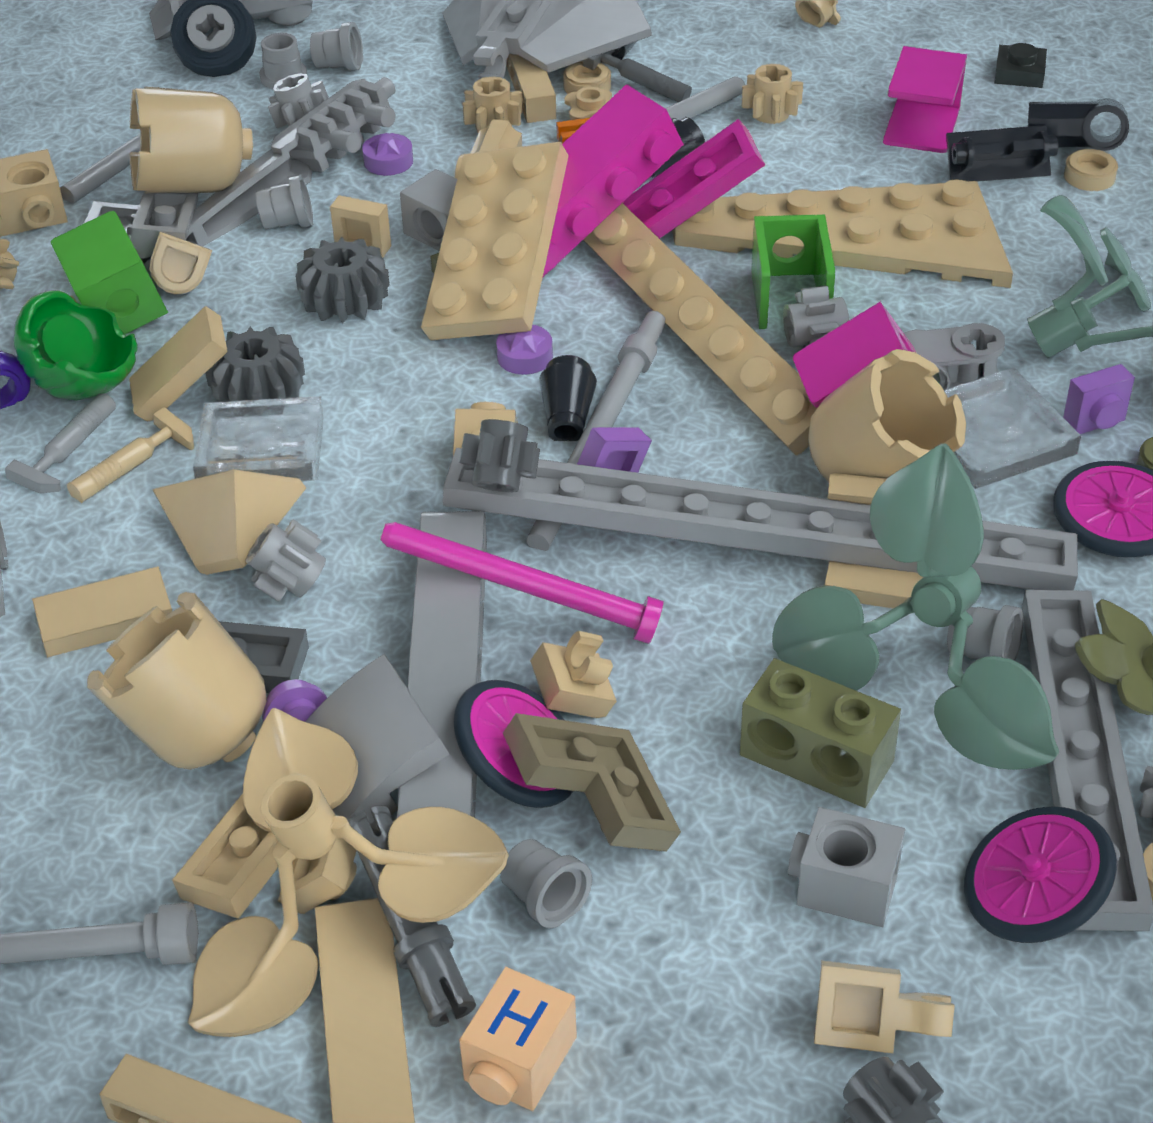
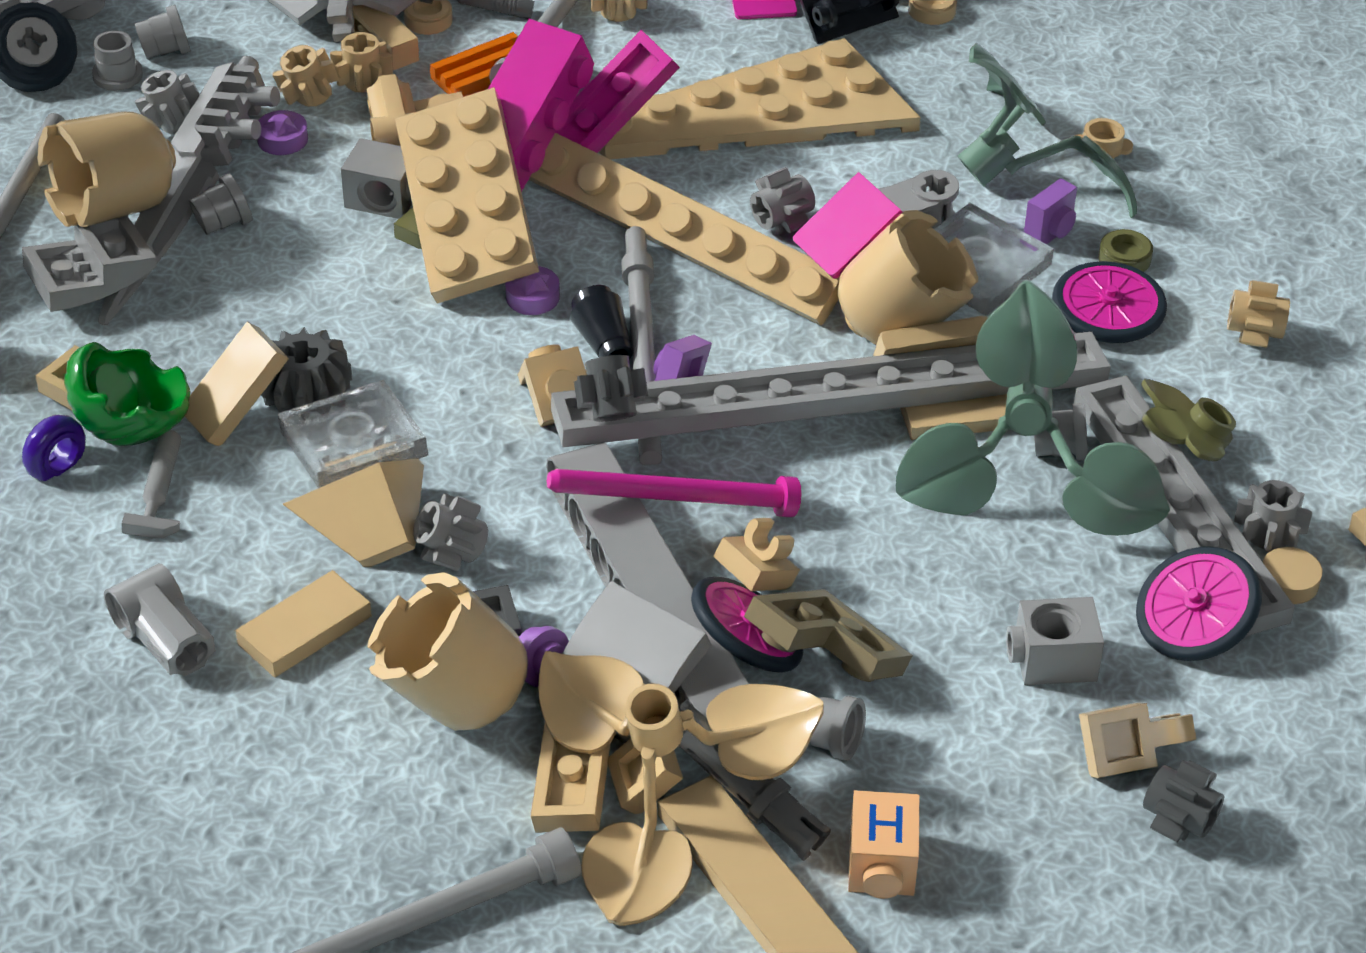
camera: 25 degrees left, 0 degrees up
(109, 271) = (106, 308): bright green piece -> none
(131, 456) = (232, 479): tan piece -> none
(178, 264) = (158, 289): tan tile -> none
(342, 279) = (327, 265): dark grey gear -> none
(361, 220) = (311, 210): tan plate -> none
(433, 107) = (306, 76): none -> tan gear
(586, 101) = (449, 39): tan plate -> none
(814, 258) = (750, 141): bright green piece -> none
(819, 732) = (980, 546): olive brick -> none

